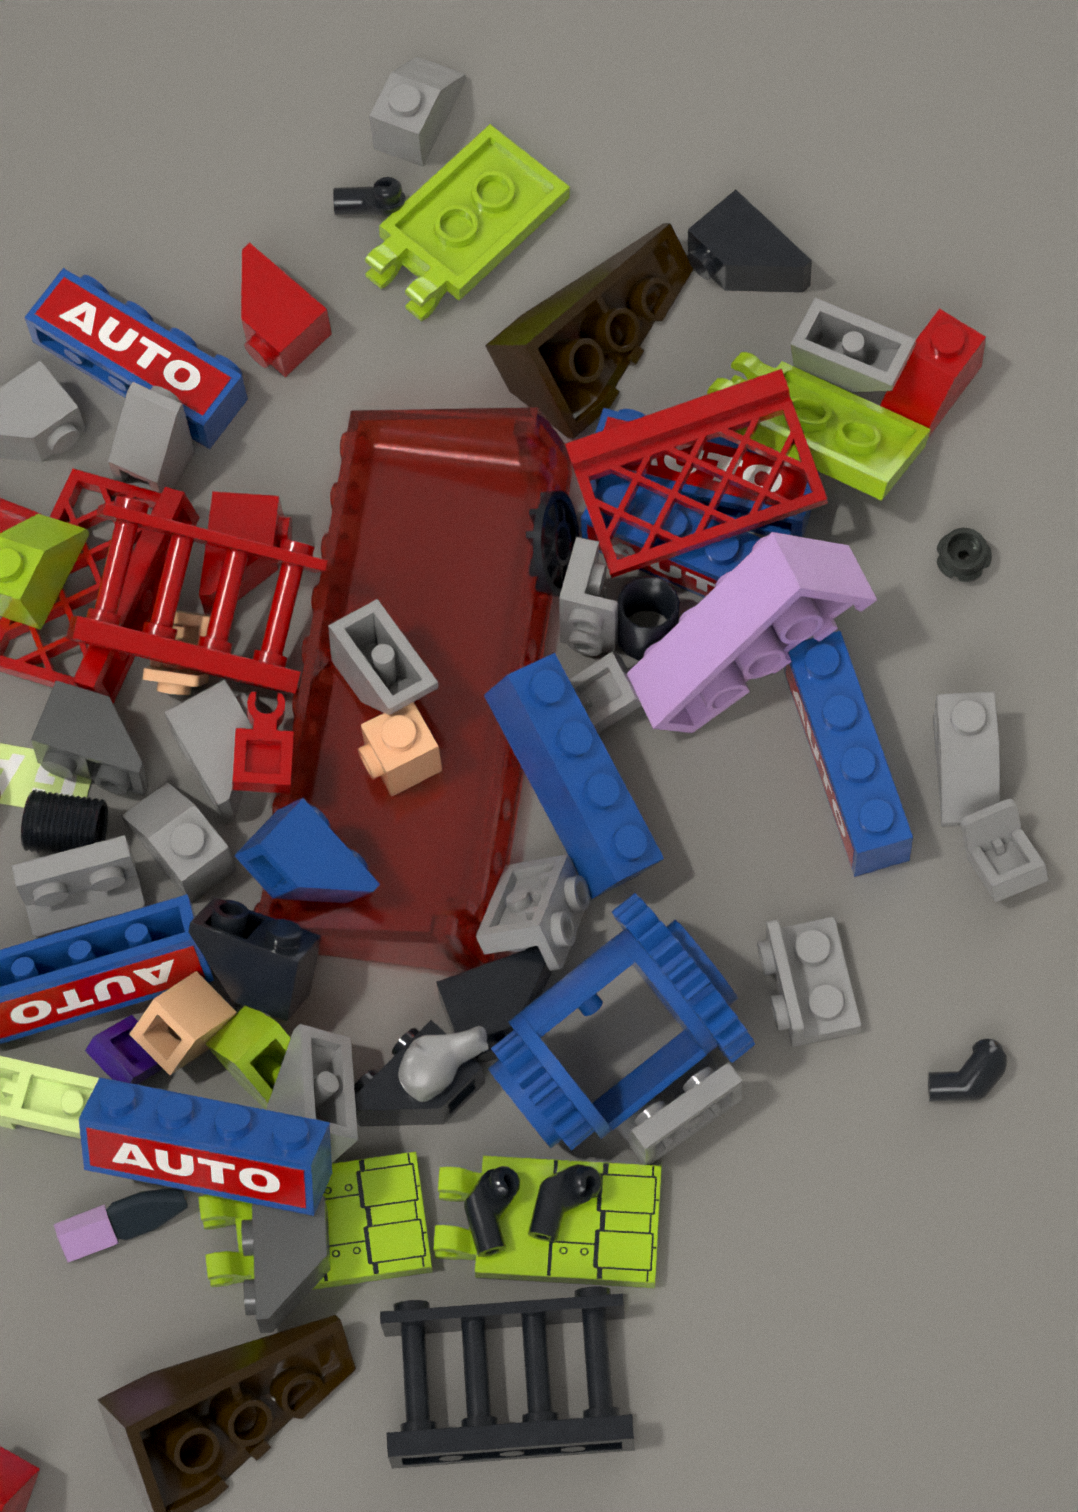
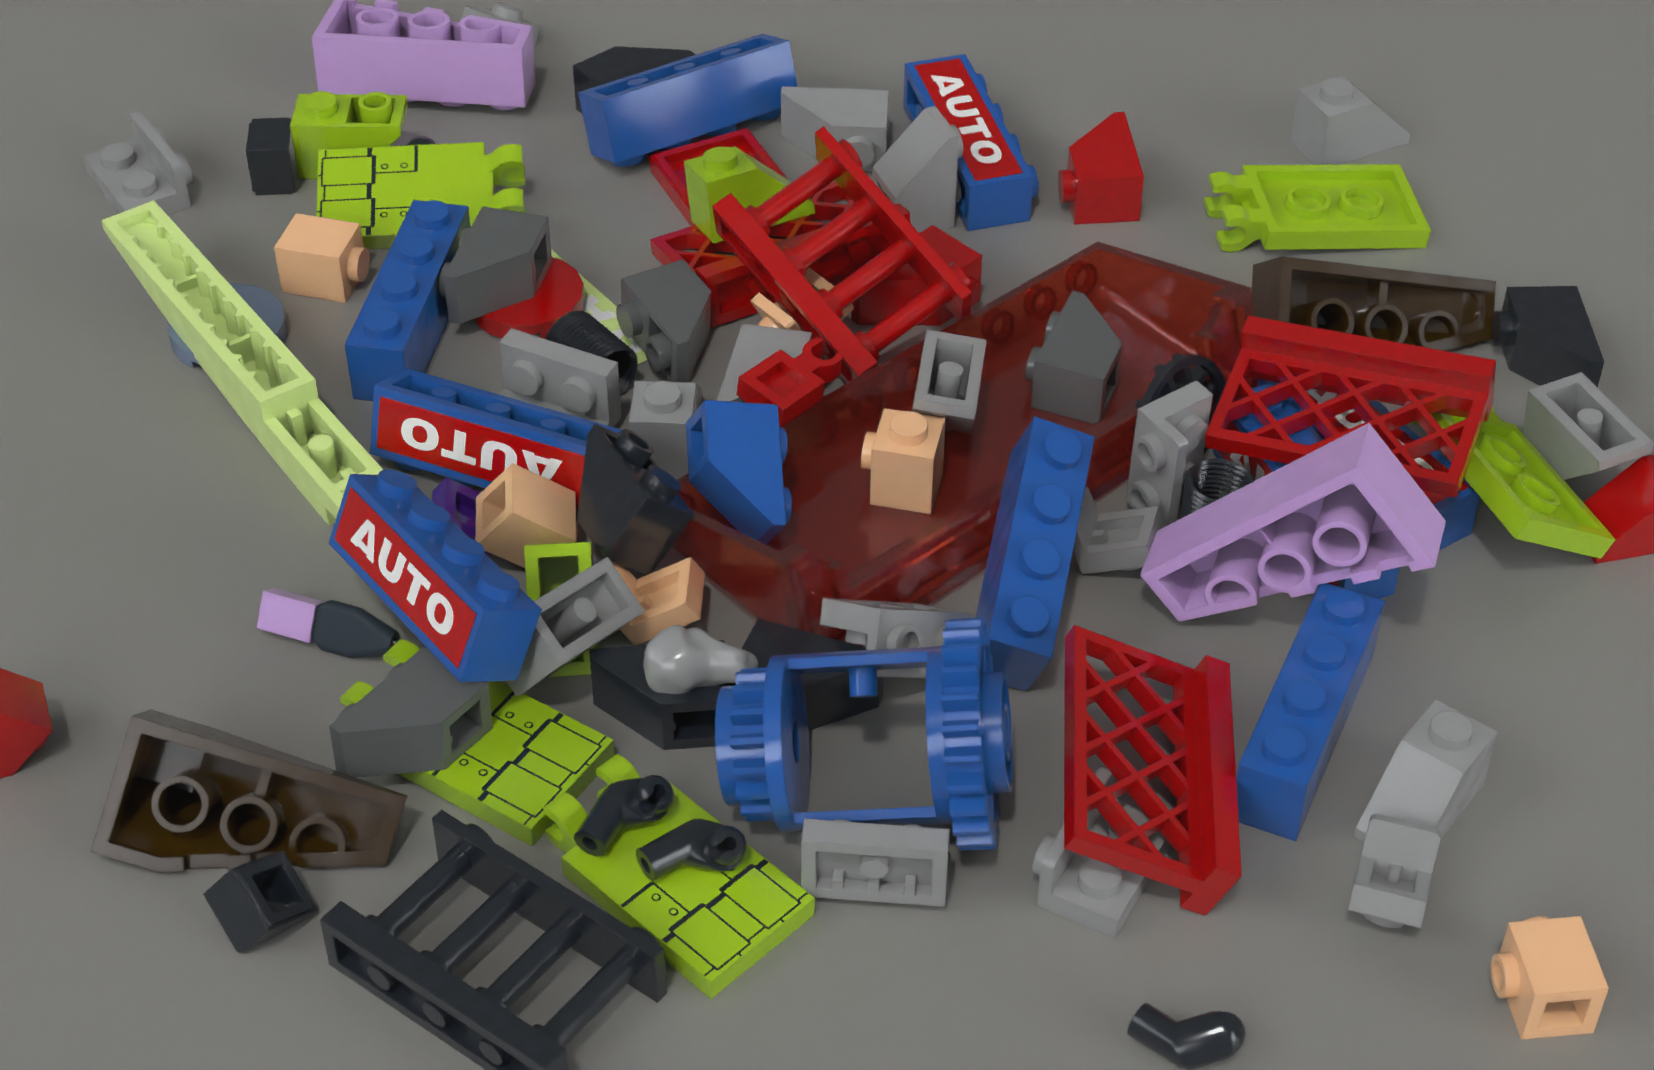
camera: 35 degrees right, 25 degrees down
(310, 1467) = (259, 901): none -> black slope
(338, 1005) = (667, 597): none -> light nougat bracket
(378, 200) = (1240, 152): black arm -> none
(437, 546) = (1077, 364): none -> dark grey slope
(822, 870) = (1198, 773): none -> red fence
(966, 541) = (1567, 646): pearl dark grey plate -> none

